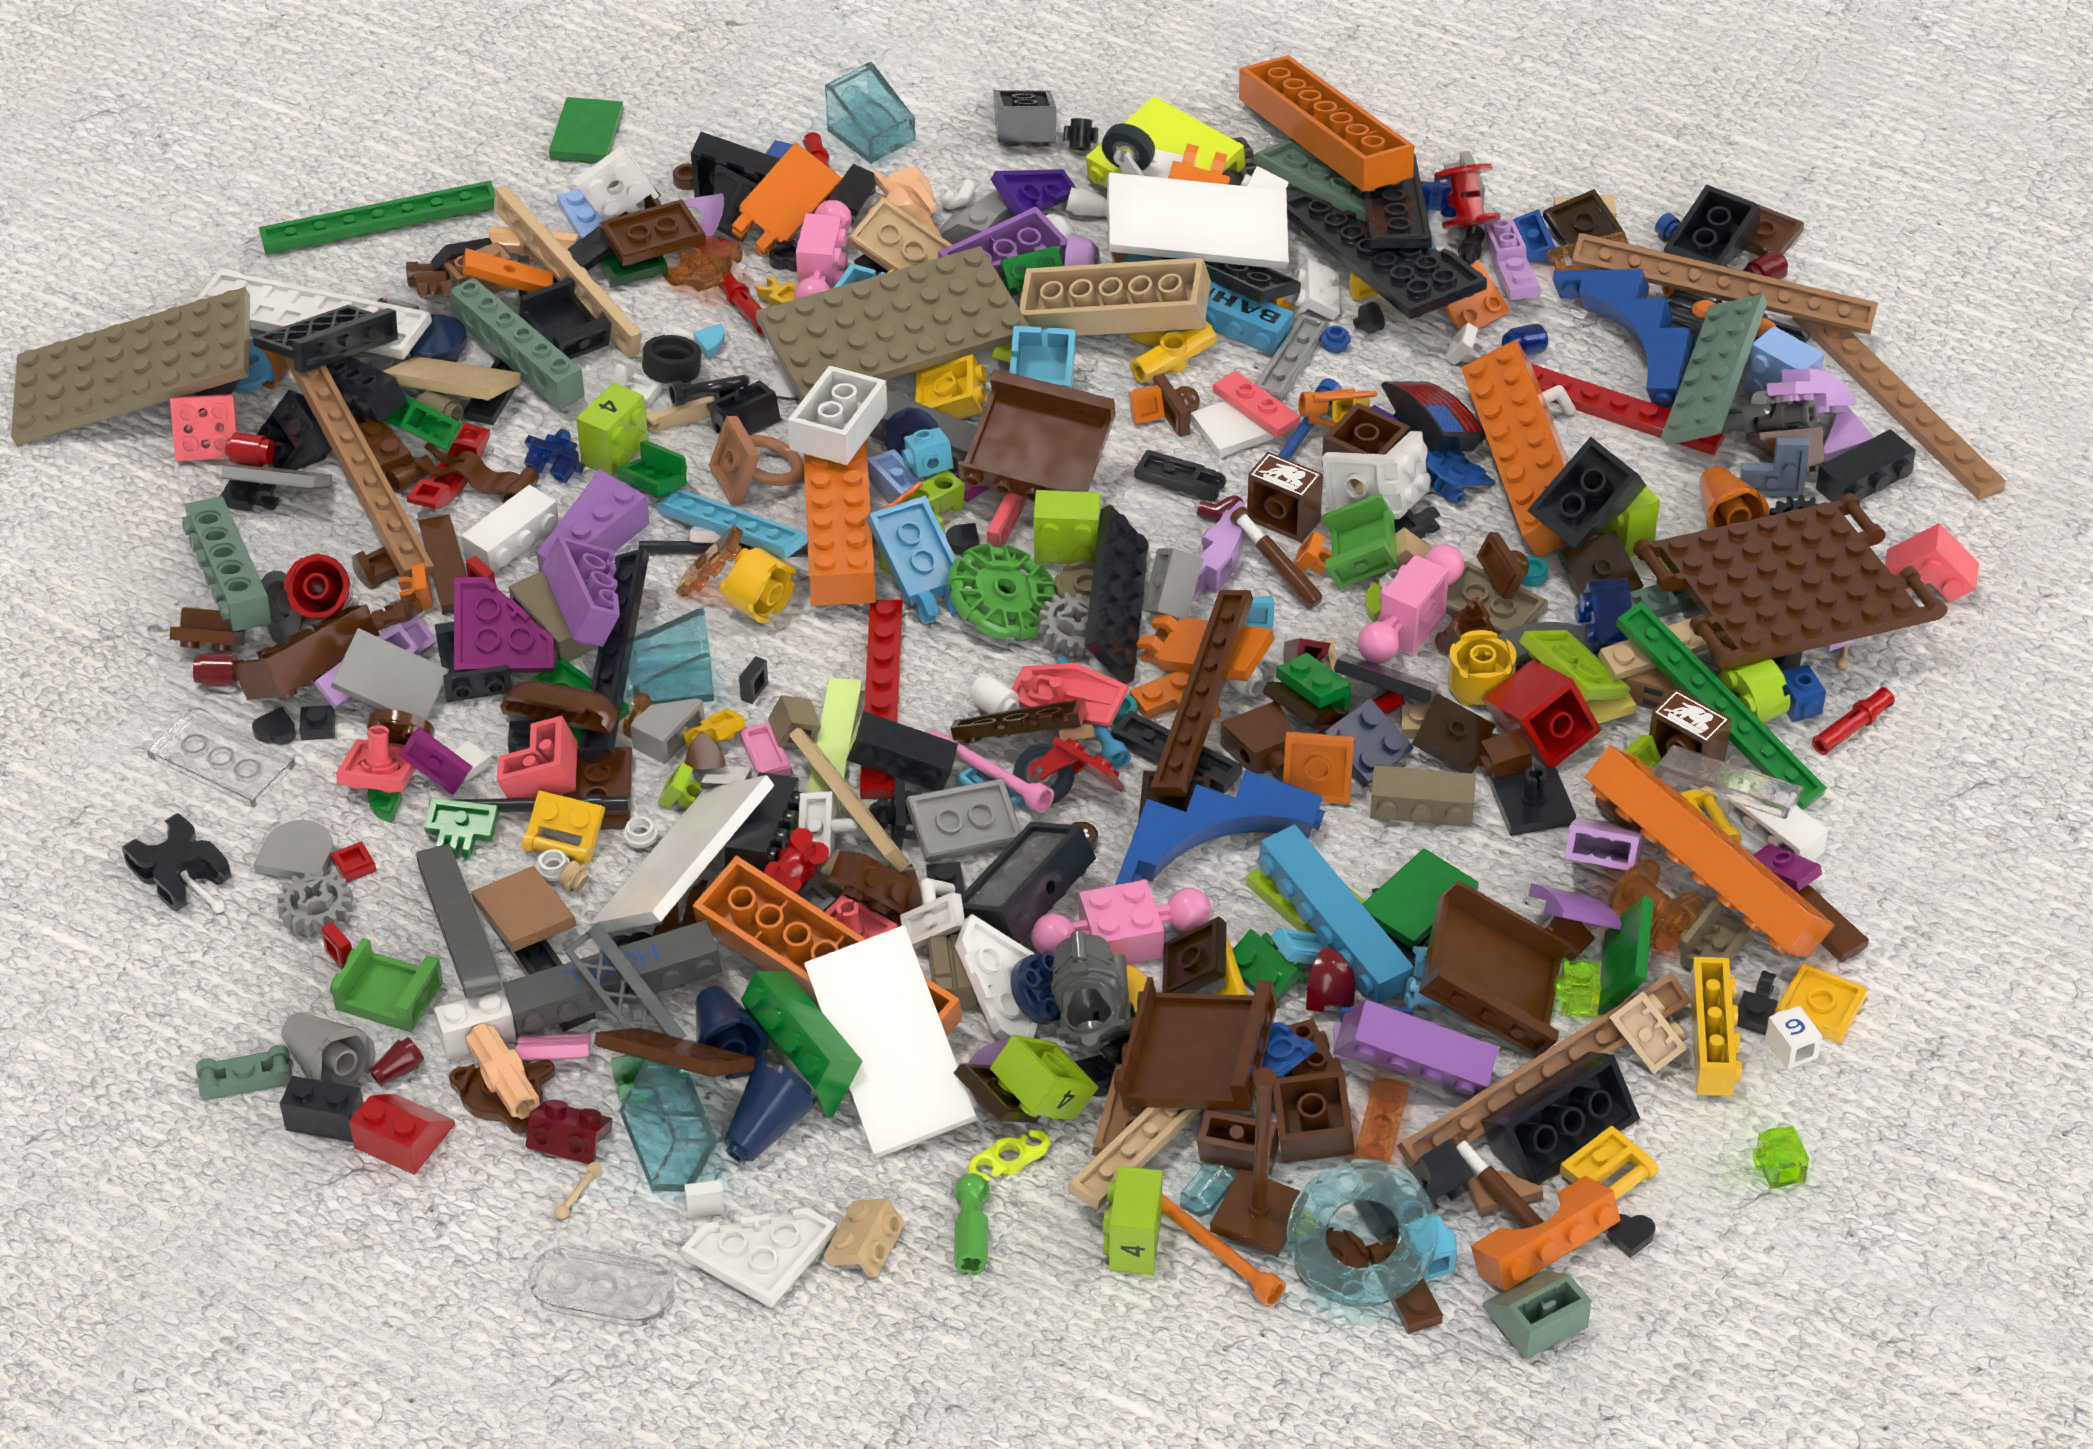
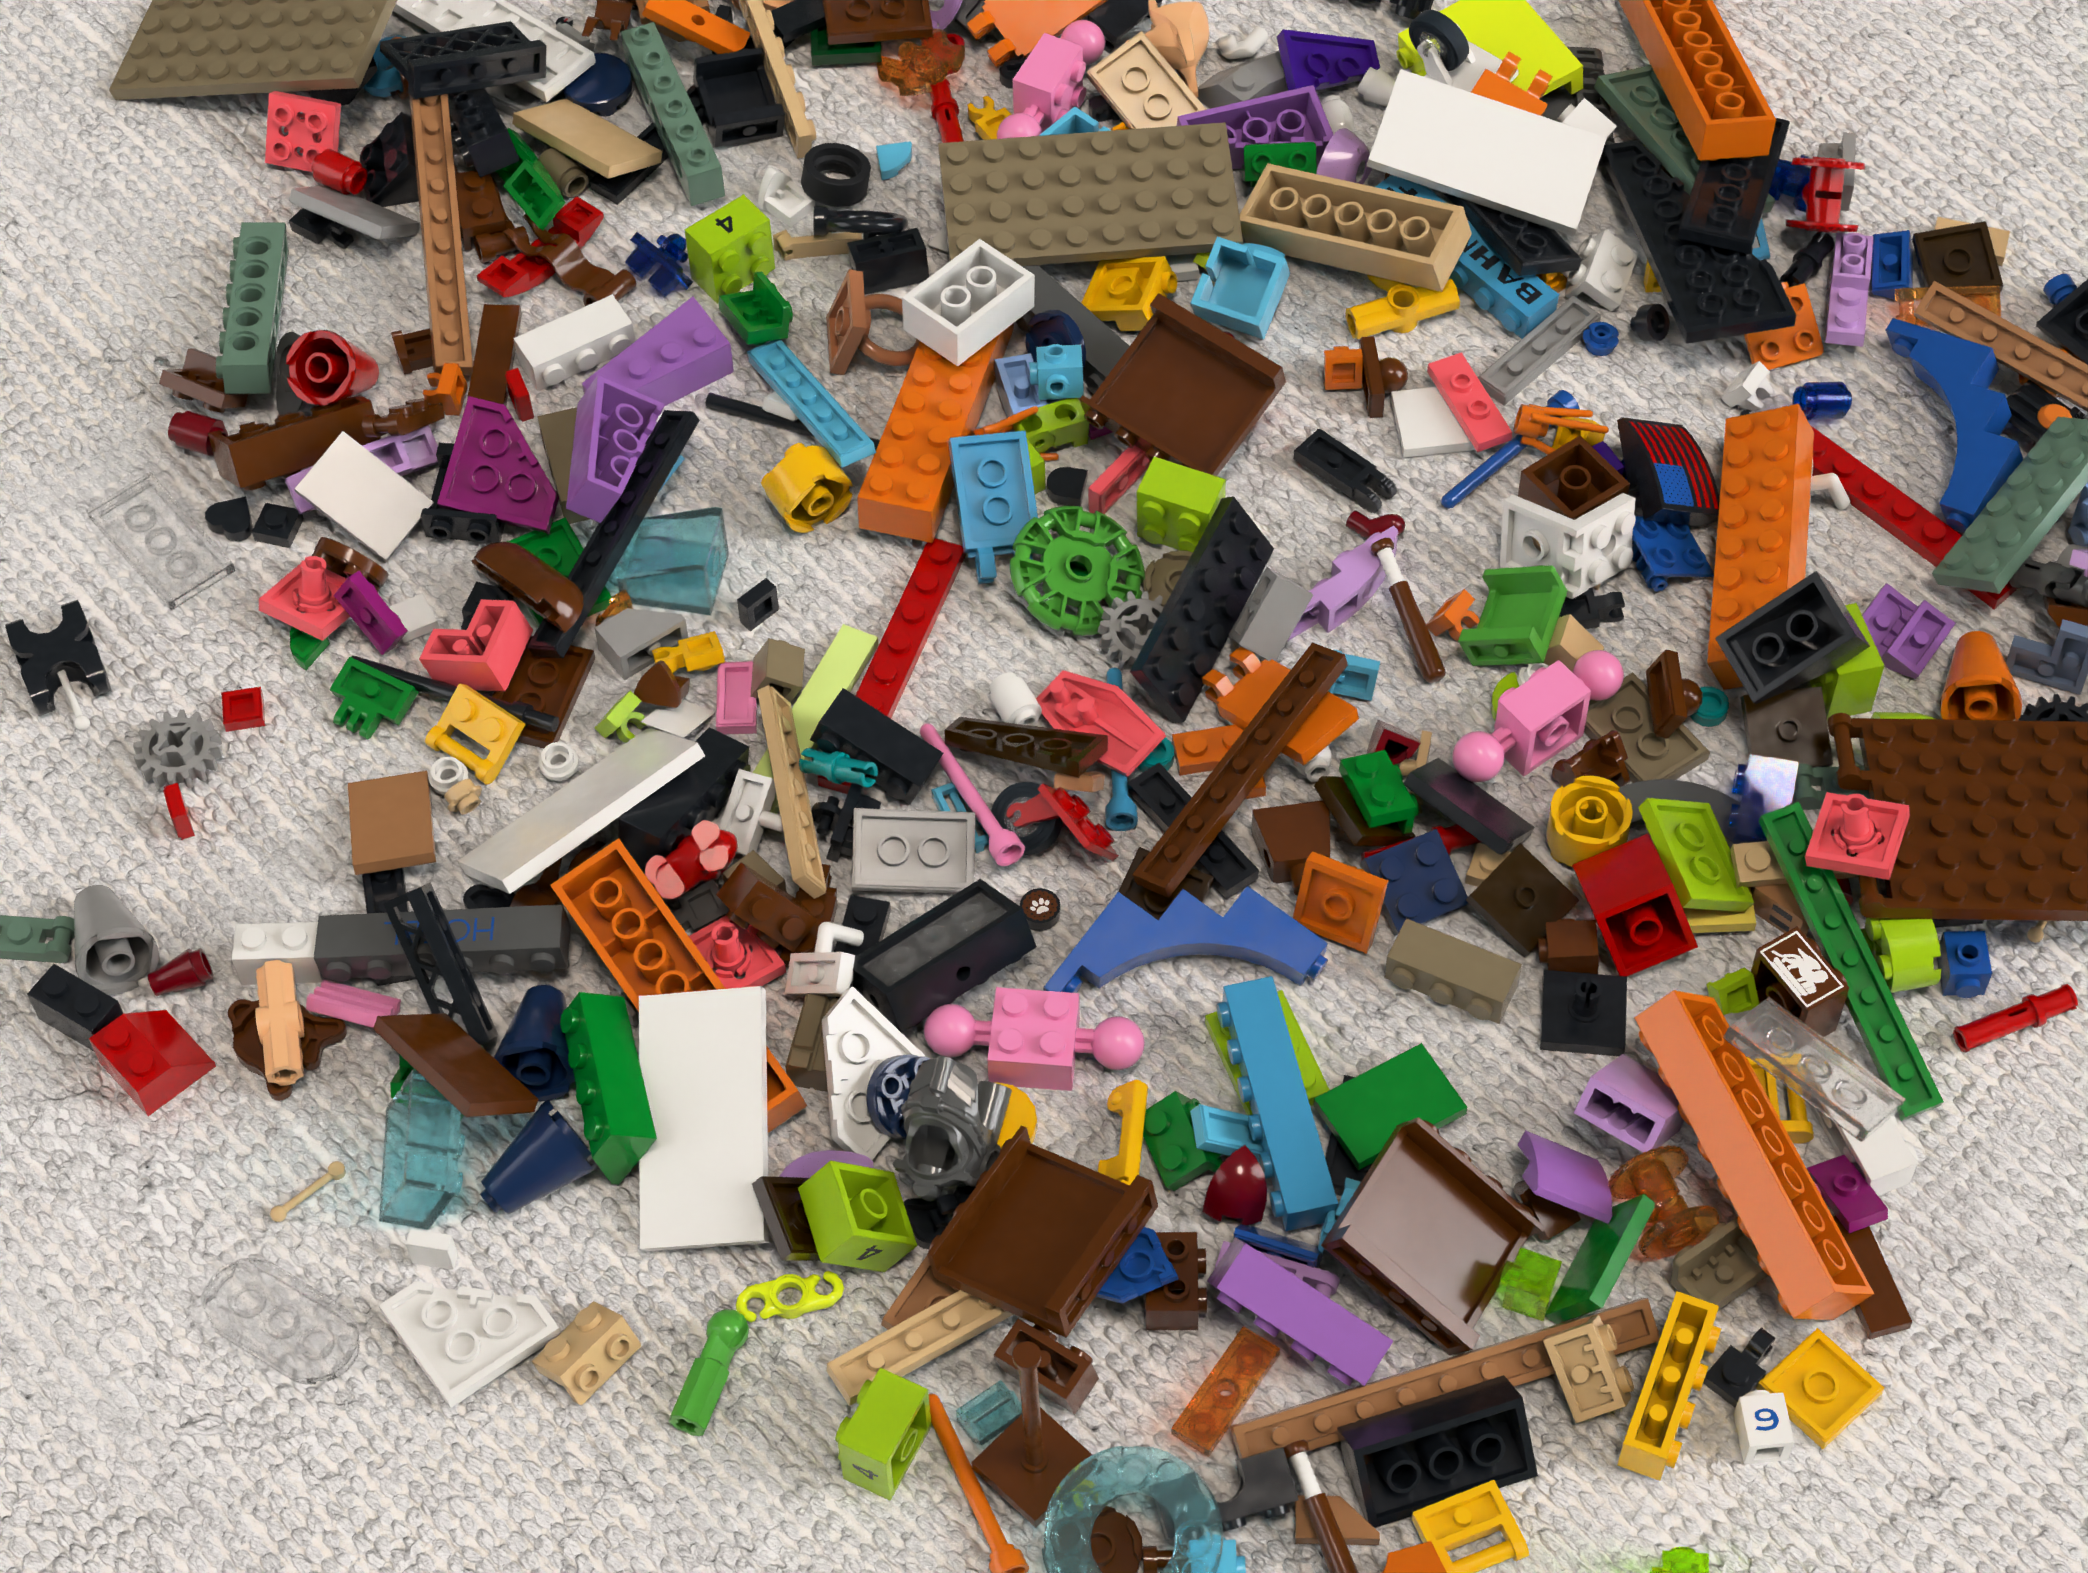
camera: 20 degrees right, 10 degrees up
(295, 849) = (189, 678): light grey tile -> none
(385, 987) = (209, 875): bright green panel -> none
(458, 921) = (307, 823): dark grey beam -> none
(567, 1131) = (324, 1114): dark red bracket -> none
(711, 562) = (764, 447): clear orange tile -> none
(880, 772) = (838, 767): none -> teal pin
(1195, 958) = (1096, 1111): dark brown plate -> none
(1284, 496) = (1448, 534): reddish brown brick -> none
(1313, 1116) = (1146, 1359): reddish brown brick -> none
(1665, 480) = (1905, 632): none -> medium lavender slope
(1695, 604) = (1857, 828): none -> coral plate

